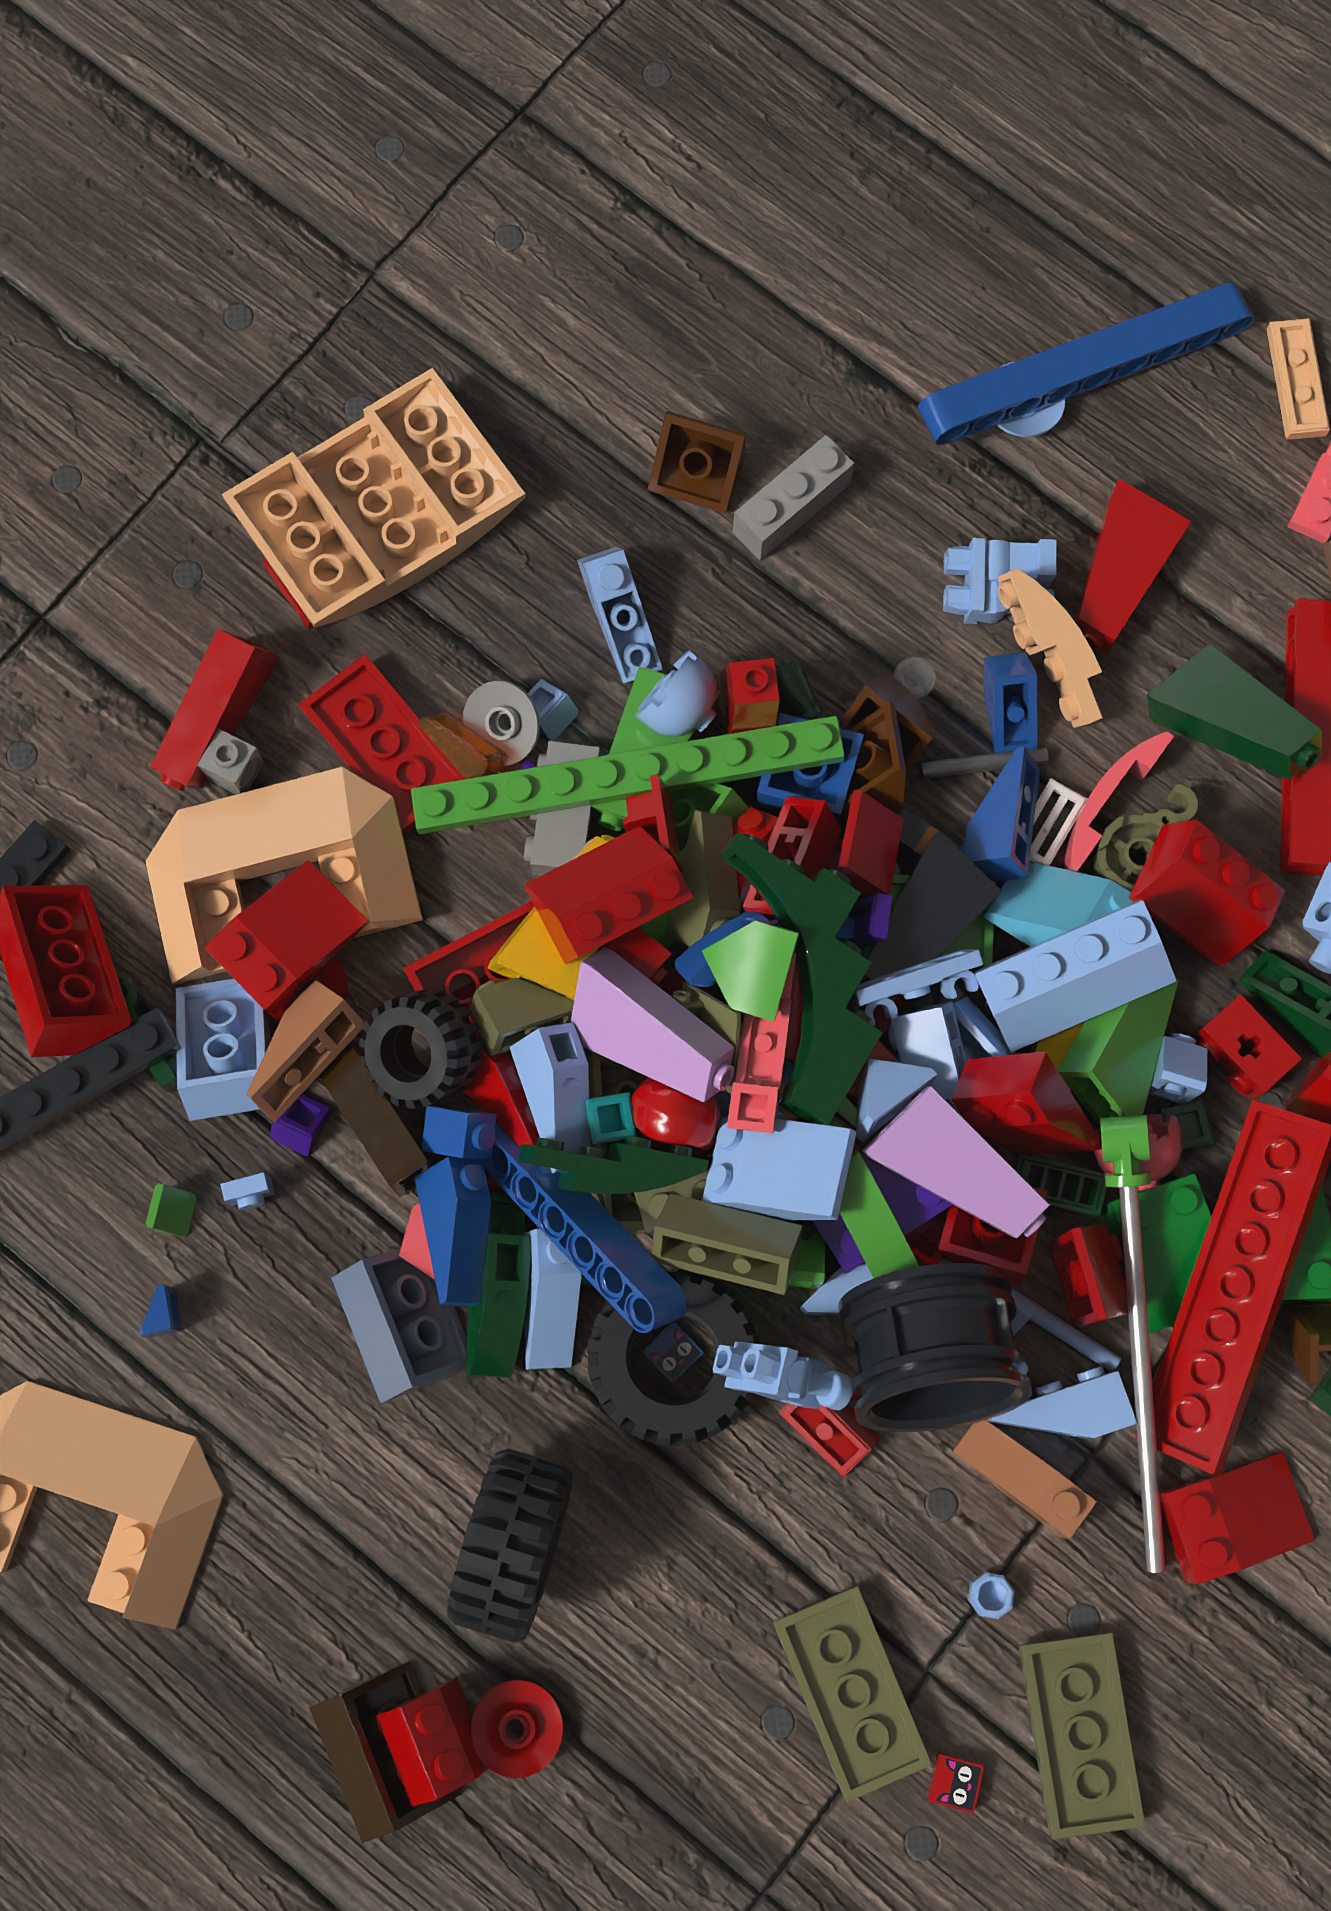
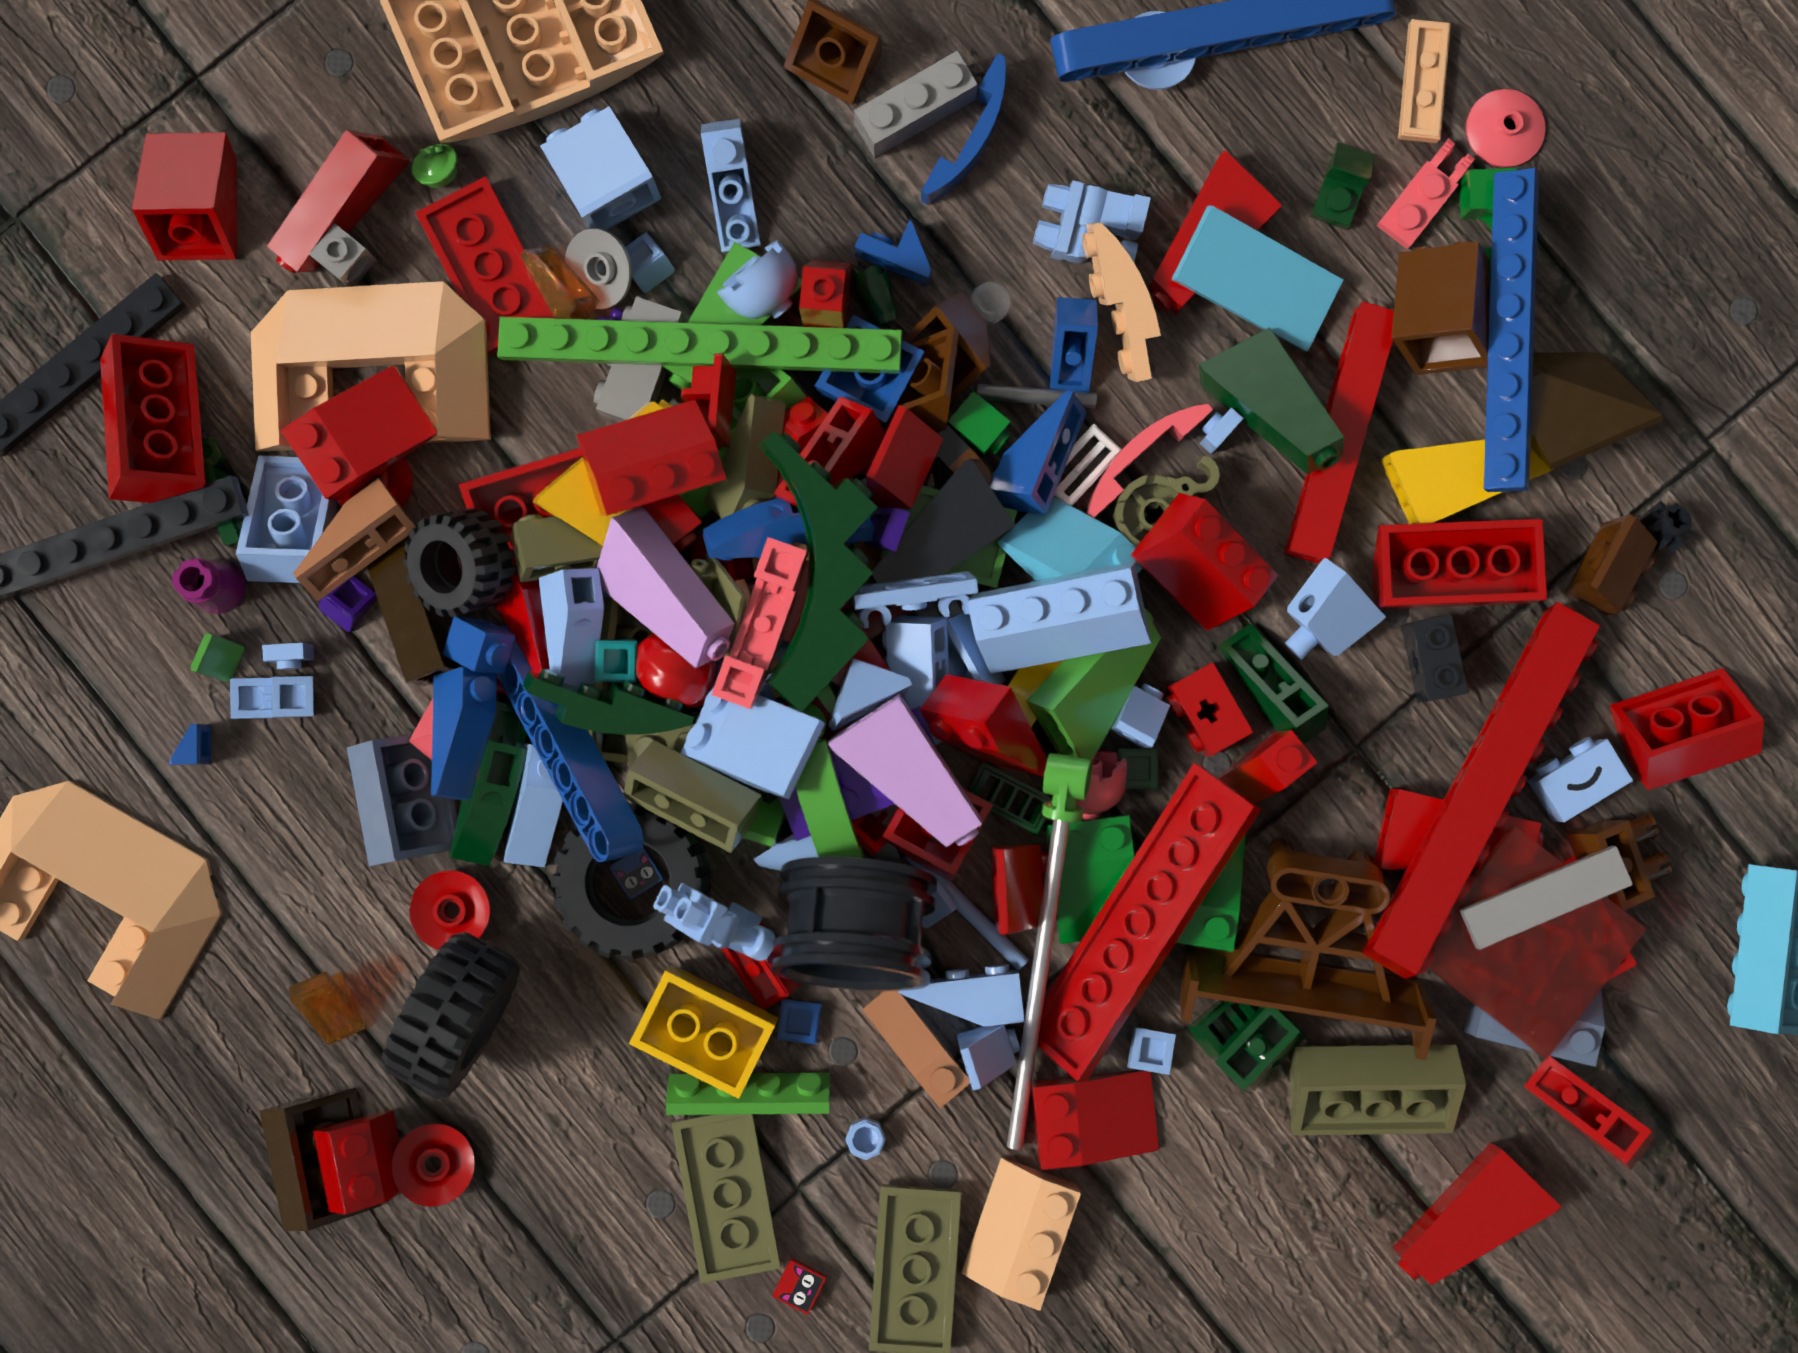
camera: 10 degrees right, 10 degrees up
(57, 735) = (188, 196): none -> red slope
(161, 1141) = (222, 585): none -> magenta plant
(237, 1242) = (271, 697): none -> light blue slope
(310, 654) = (435, 165): none -> bright green hat
(363, 1571) = (328, 1006): none -> clear orange slope
(458, 1420) = (430, 901): none -> red dish
(485, 623) = (601, 169): none -> light blue slope
(753, 967) = (765, 556): bright green slope -> none
(789, 1509) = (703, 1030): none -> yellow slope
(818, 653) = (905, 260): none -> blue slope
(841, 557) = (945, 173): none -> blue slope
(851, 1571) = (762, 1095): none -> bright green plate
(887, 1479) = (799, 1021): none -> blue tile
(936, 800) = (980, 425): none -> green brick
(1103, 1466) = (987, 1053): none -> light blue slope
(1182, 757) = (1219, 428): none -> light blue plate
(1184, 597) = (1257, 278): none -> medium azure tile
(1189, 1666) = (1021, 1233): none -> light nougat slope
(1244, 494) = (1343, 185): none -> dark green slope
(1279, 1429) = (1151, 1051): none -> light blue plate

